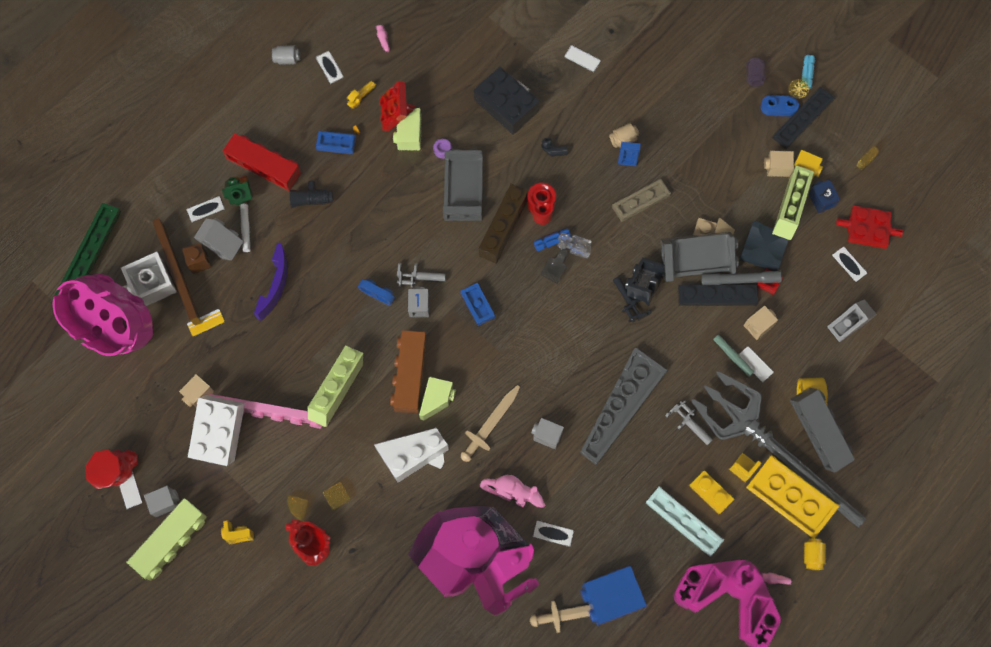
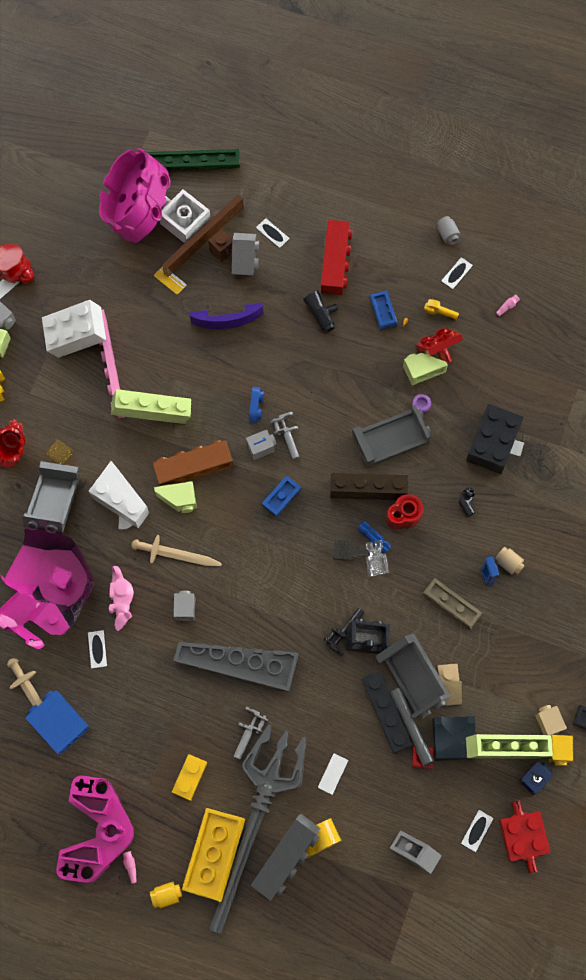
camera: 65 degrees right, 0 degrees up
(195, 389) = (105, 298): tan brick -> none
(237, 190) = (298, 249): dark green brick -> none
(245, 230) = (268, 272): white piece -> none
(297, 507) = (37, 424): clear yellow tile -> none
(385, 518) = (52, 497): none -> panel
(582, 58) = (576, 492): white sticker -> none
(684, 521) = (152, 762): light aqua tile -> none
(733, 355) = (331, 750): sand green piece -> none
(744, 467) = (224, 798): yellow panel -> none
(761, 322) = (375, 763): tan brick -> none

